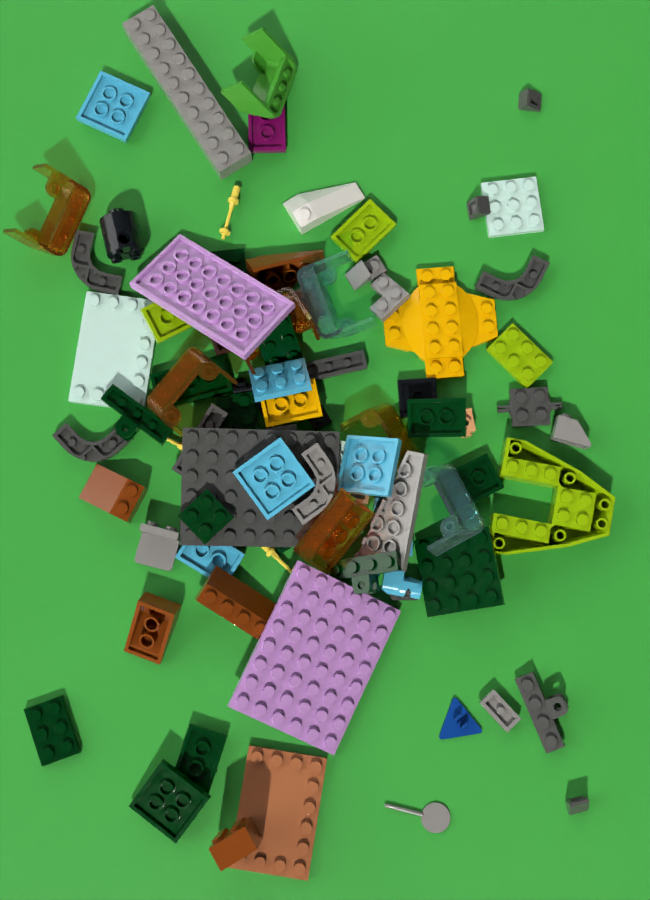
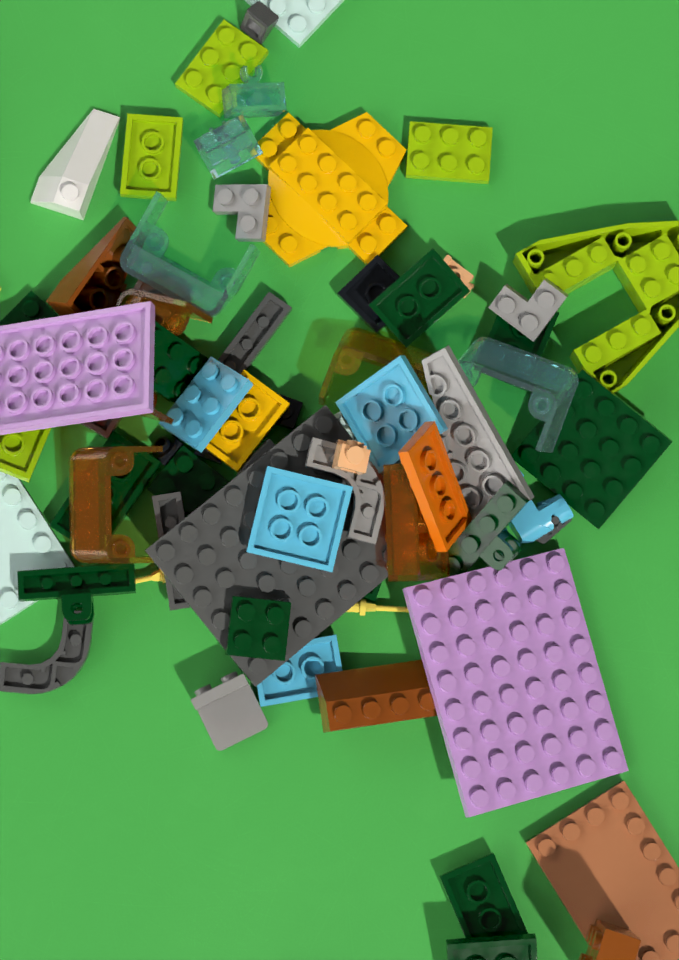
camera: 40 degrees left, 0 degrees up
(113, 493) = (125, 695): dark orange slope -> none
(152, 627) = (304, 807): dark orange slope -> none
(327, 469) = (351, 457): none -> light nougat brick
(358, 521) = (435, 486): none -> orange plate
(365, 272) = (194, 202): light grey slope -> none
(406, 257) = (228, 146): none -> clear light blue brick
(438, 215) = (219, 66): none -> lime plate
(440, 243) = (253, 97): none -> clear light blue brick
(488, 476) = (529, 315): none -> light grey plate
(513, 289) = (379, 81): dark grey plate -> none
(529, 407) = (509, 200): dark grey plate -> none
(569, 432) = (577, 191): light grey slope -> none

